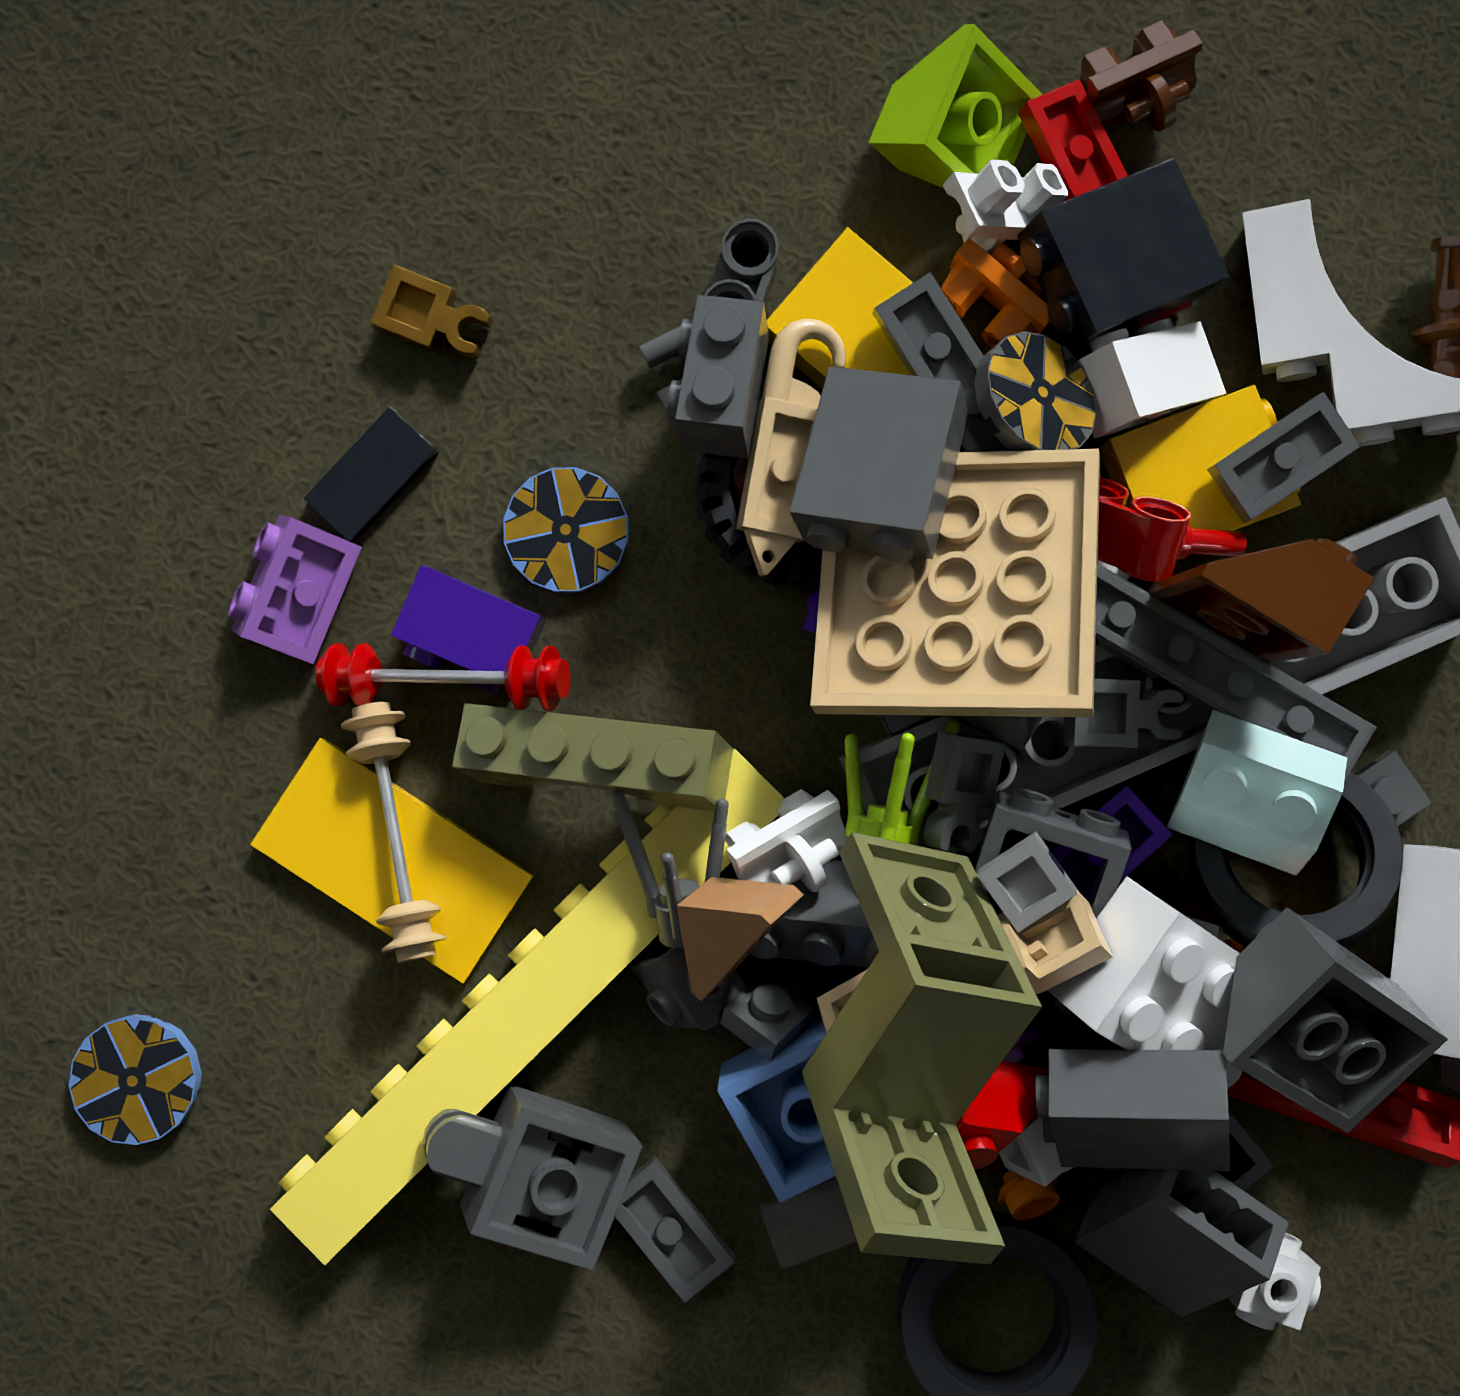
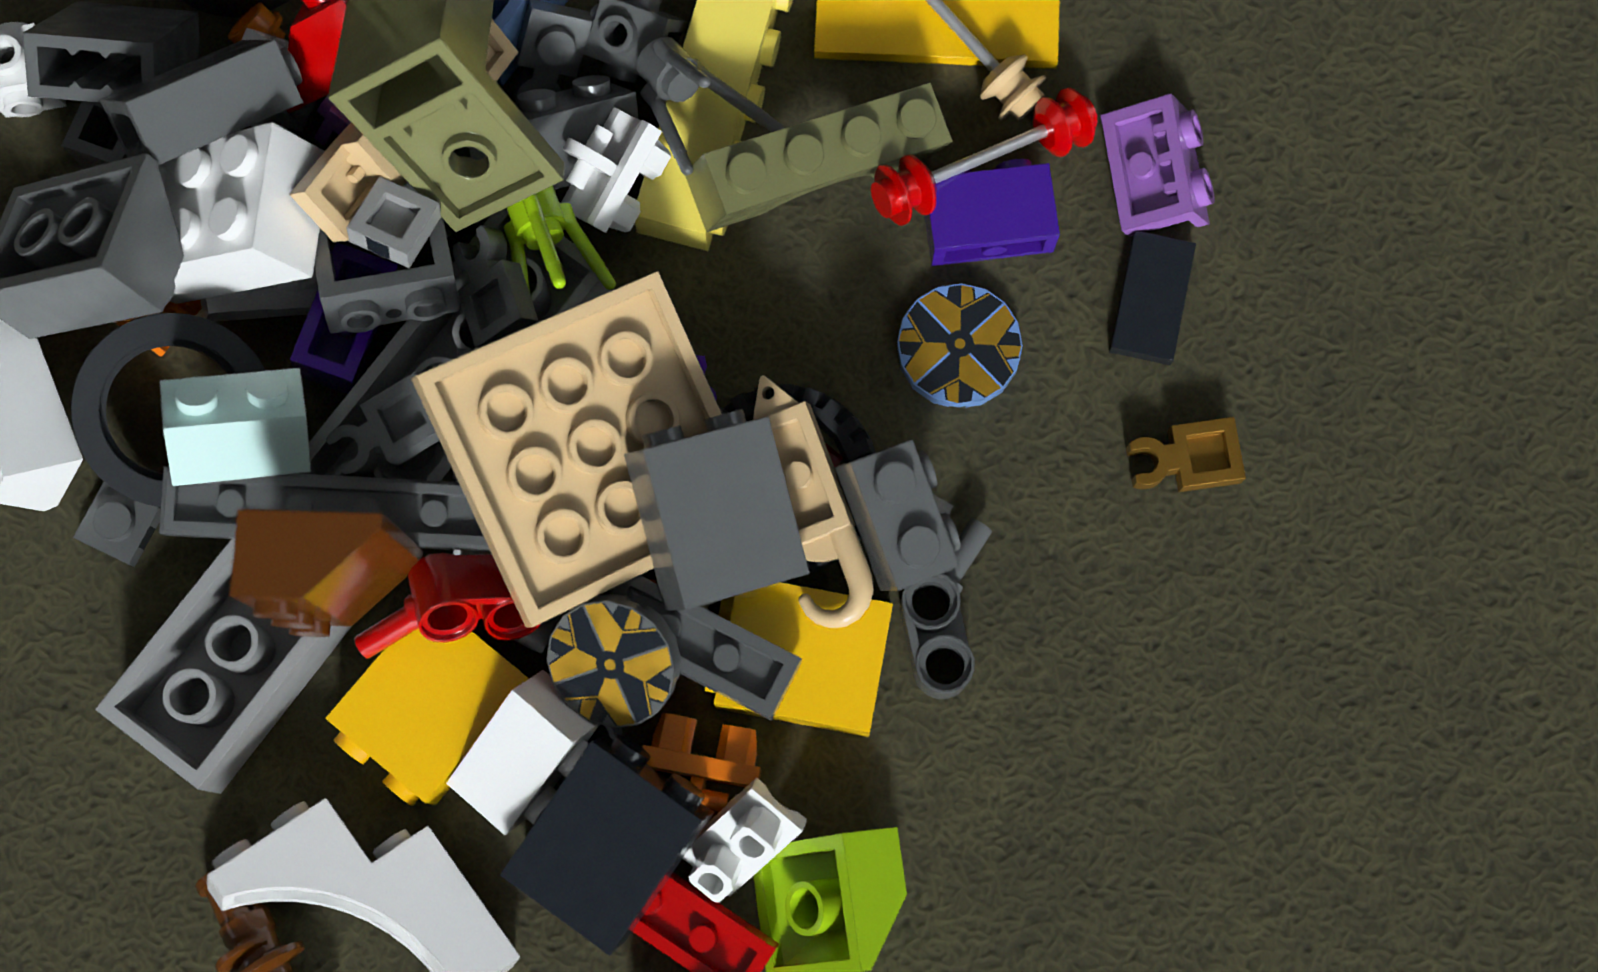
camera: 155 degrees right, 10 degrees down
(726, 923) = (626, 71): medium nougat slope -> none
(1283, 457) = (363, 740): dark grey plate -> none

